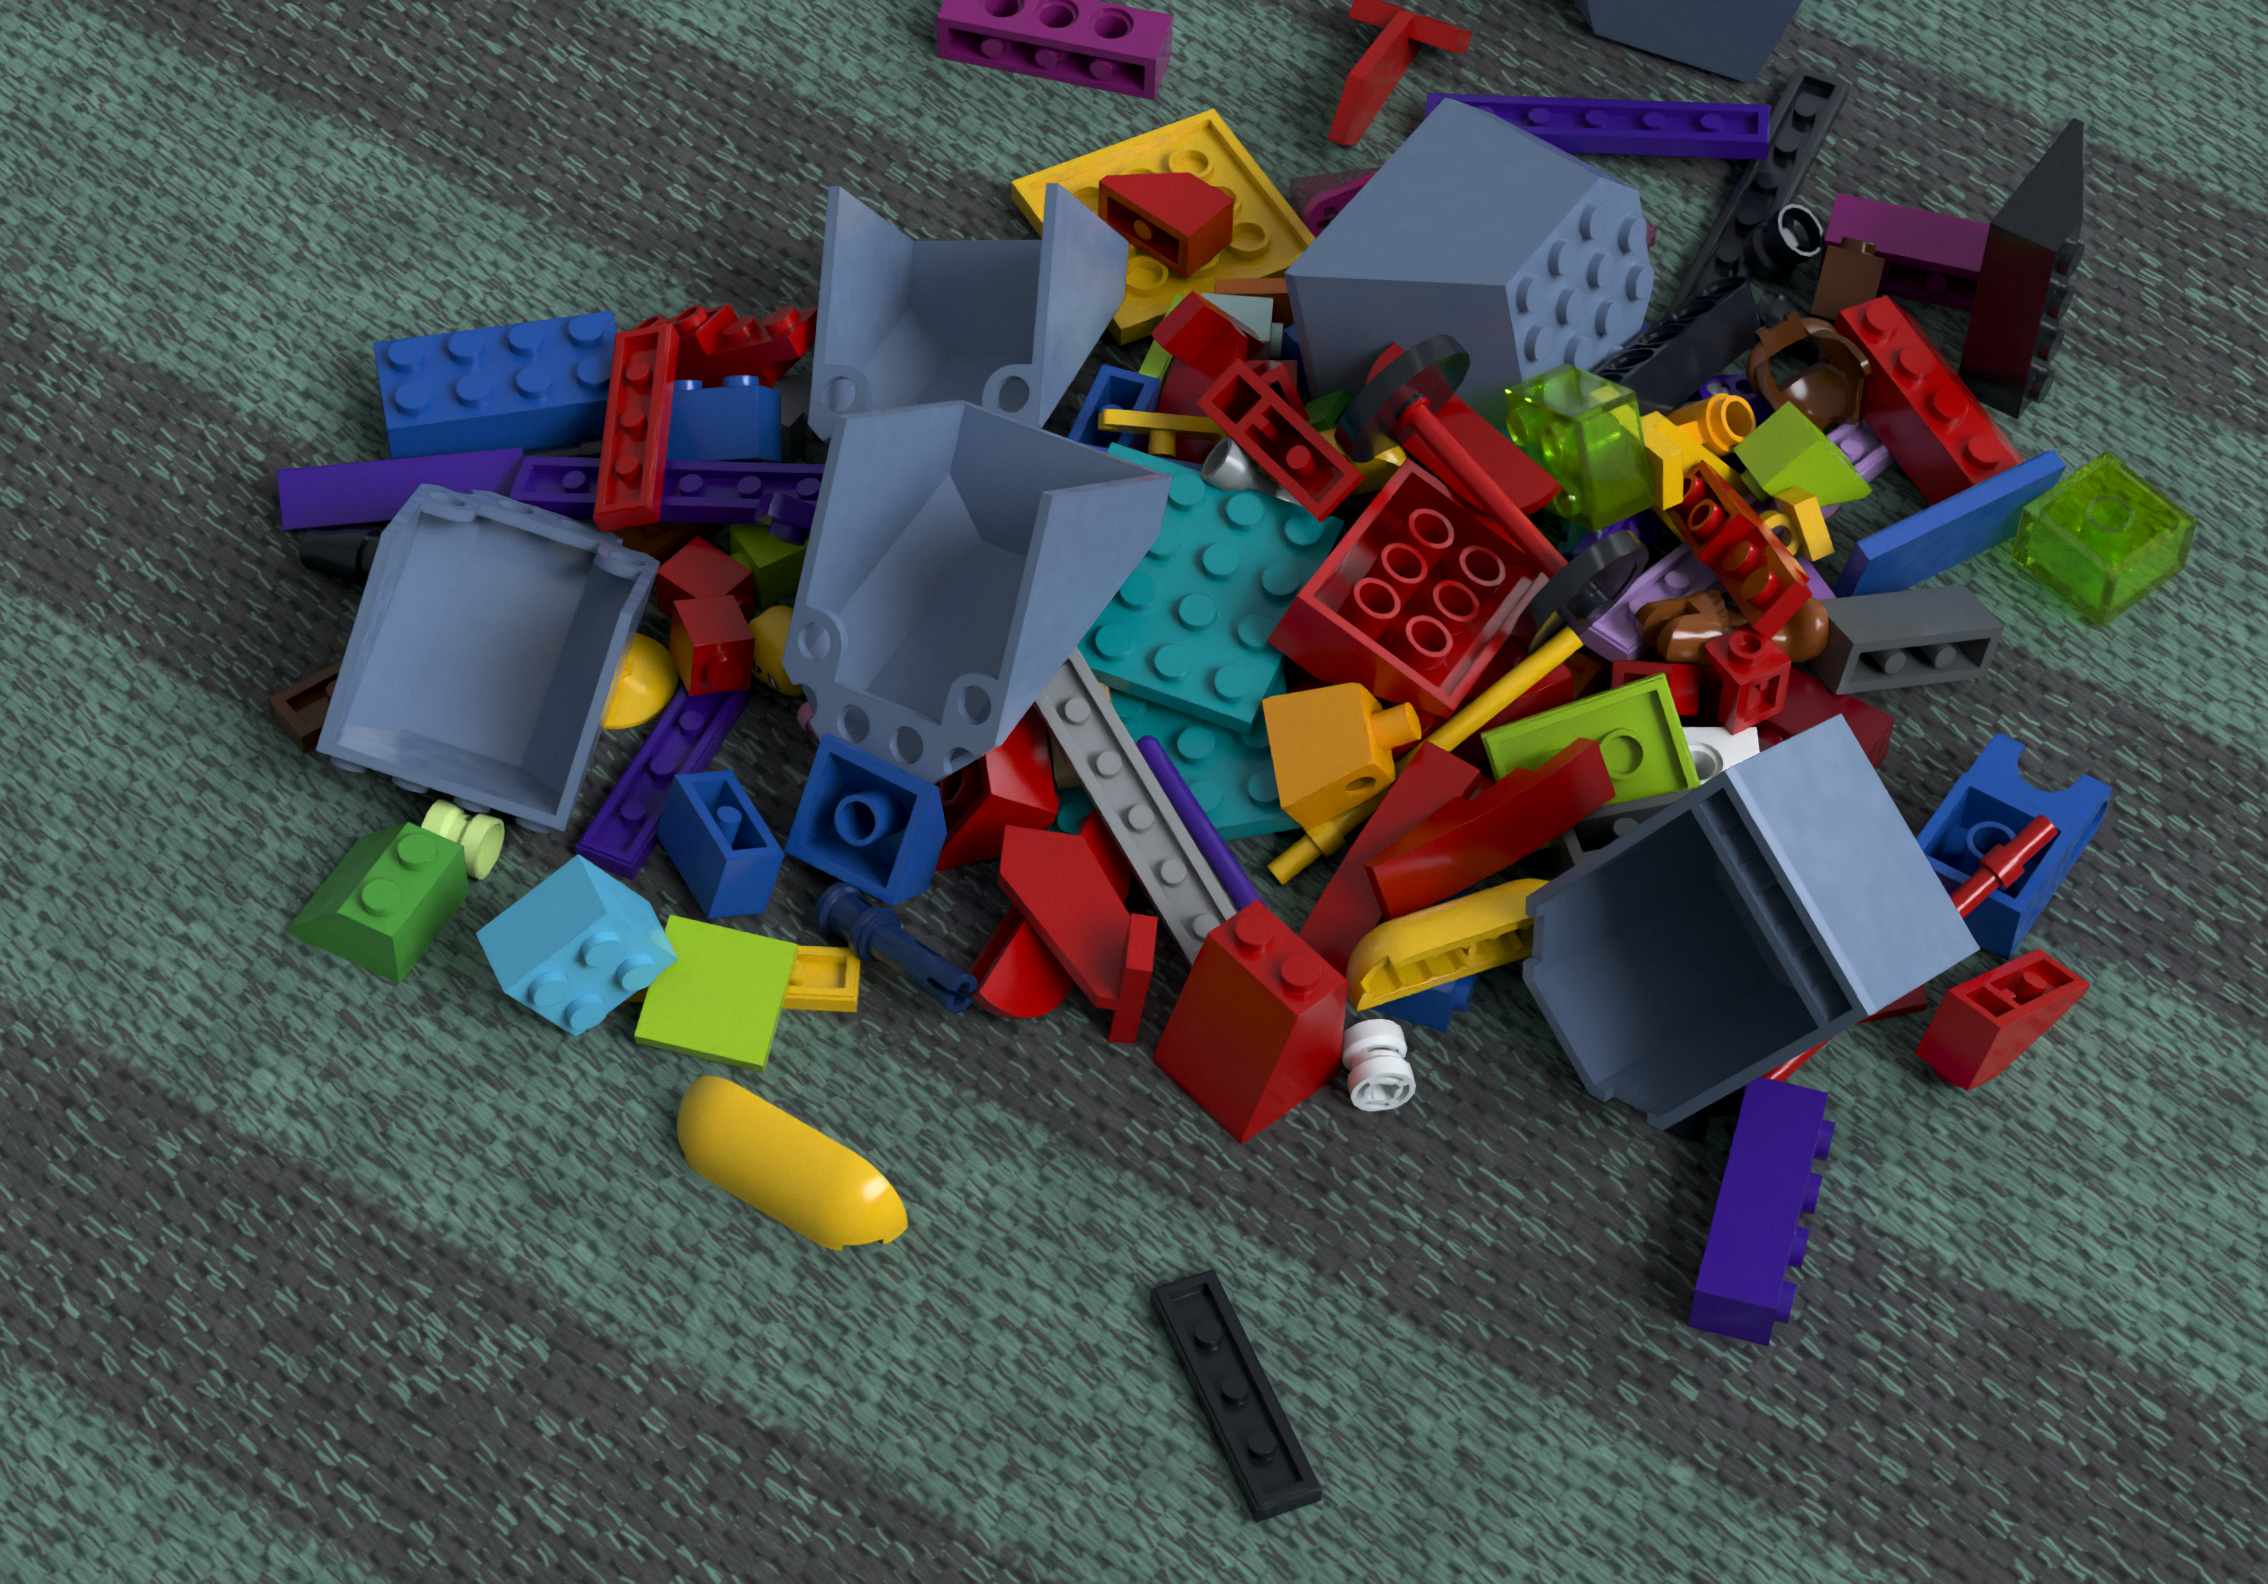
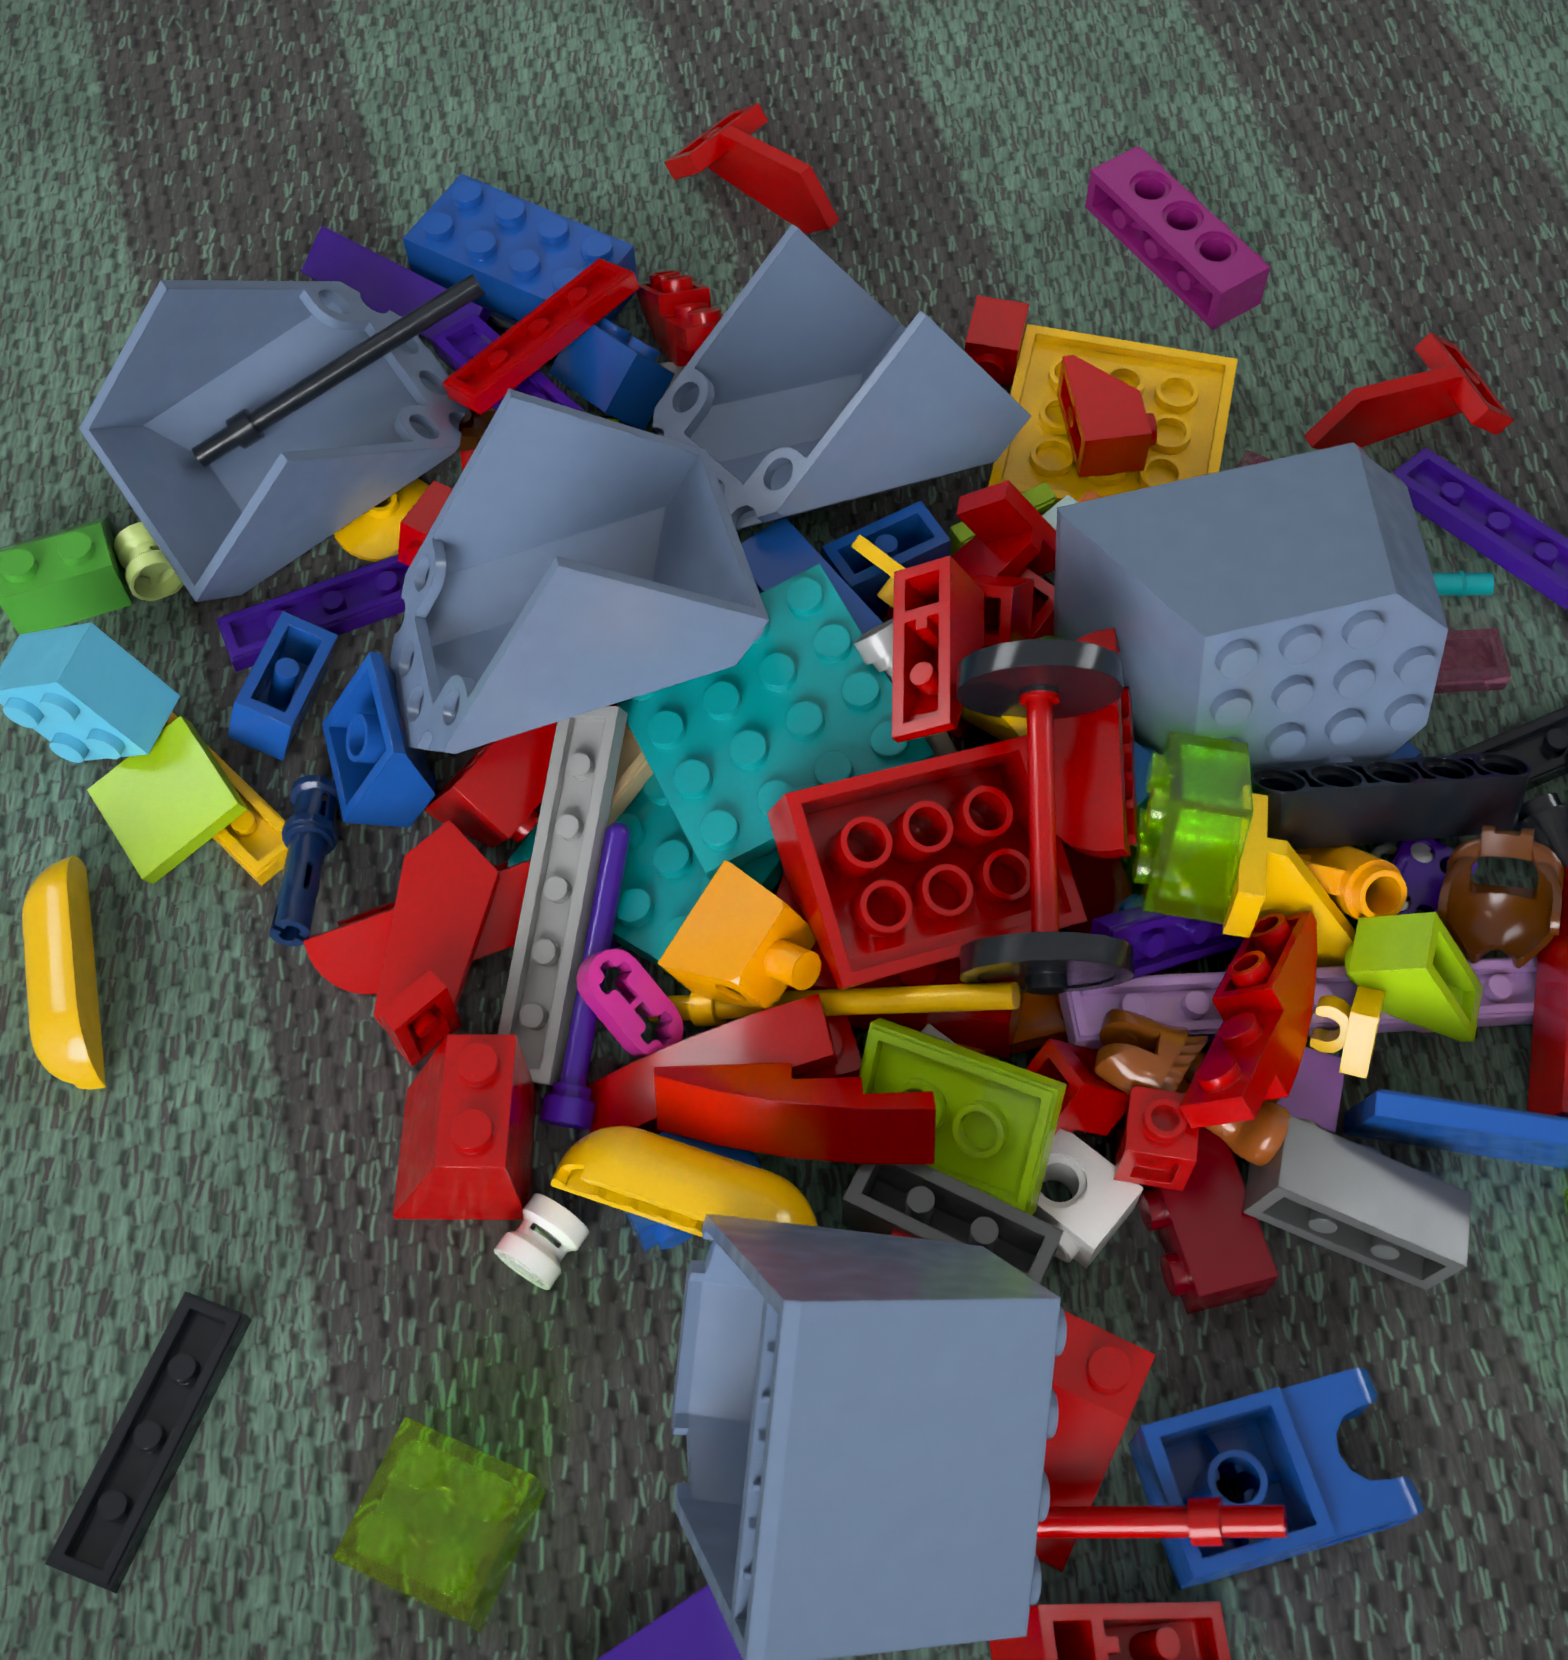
camera: 45 degrees right, 10 degrees up
(443, 665) = (248, 427): none -> black bar
(626, 187) = (758, 170): none -> red piece
(997, 205) = (997, 336): none -> red brick
(1274, 862) = (640, 994): none -> dark pink beam
(1511, 1268) = (441, 1524): none -> clear neon green brick

